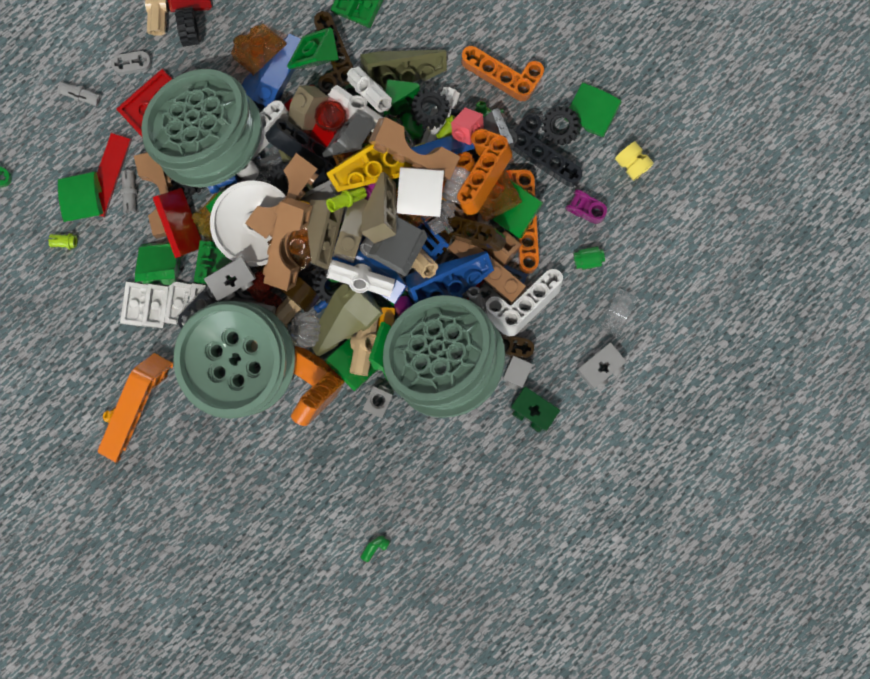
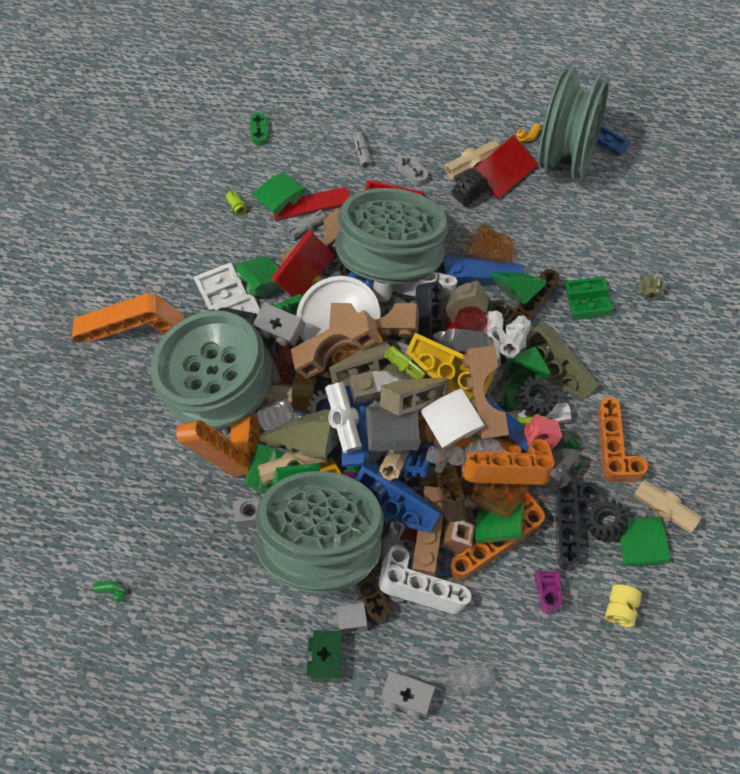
camera: 60 degrees right, 20 degrees down
(578, 70) = (667, 506): none -> tan piece
(589, 258) = (503, 620): green brick -> none

